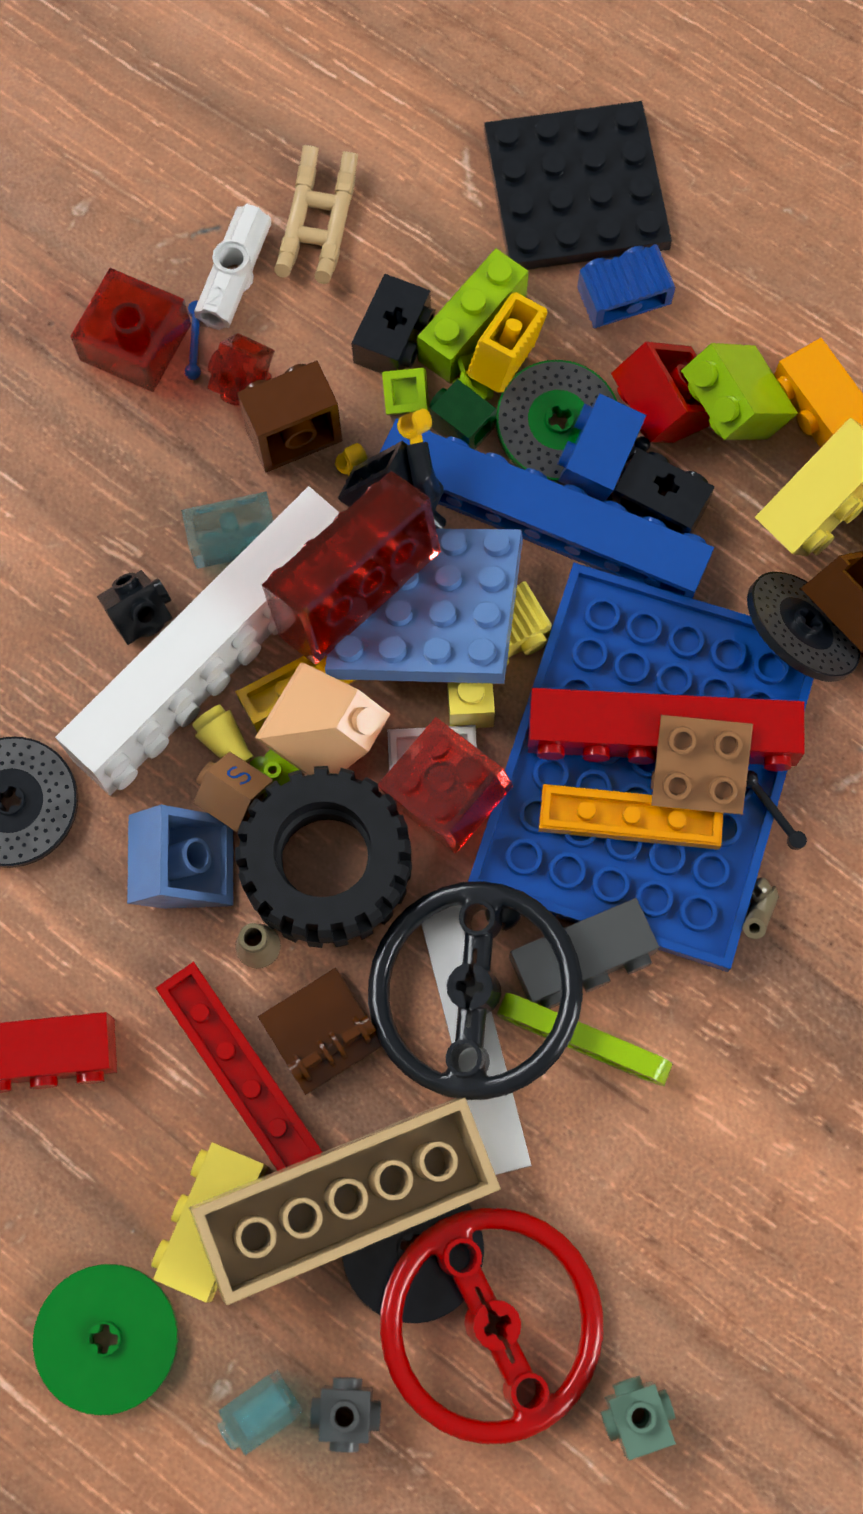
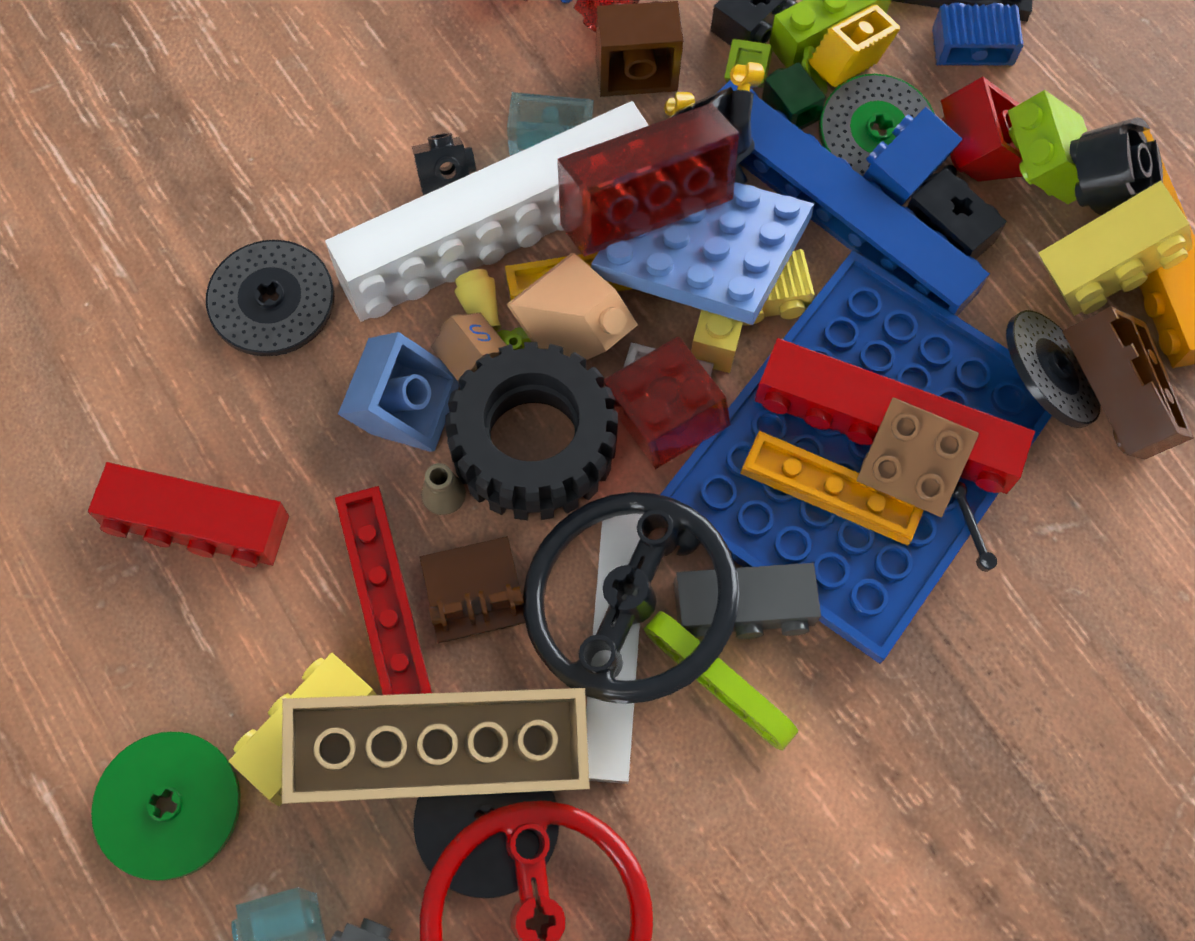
camera: 15 degrees right, 5 degrees down
(761, 909) = (930, 618): dark tan arm -> none
(803, 402) = (1114, 164): none -> black brick

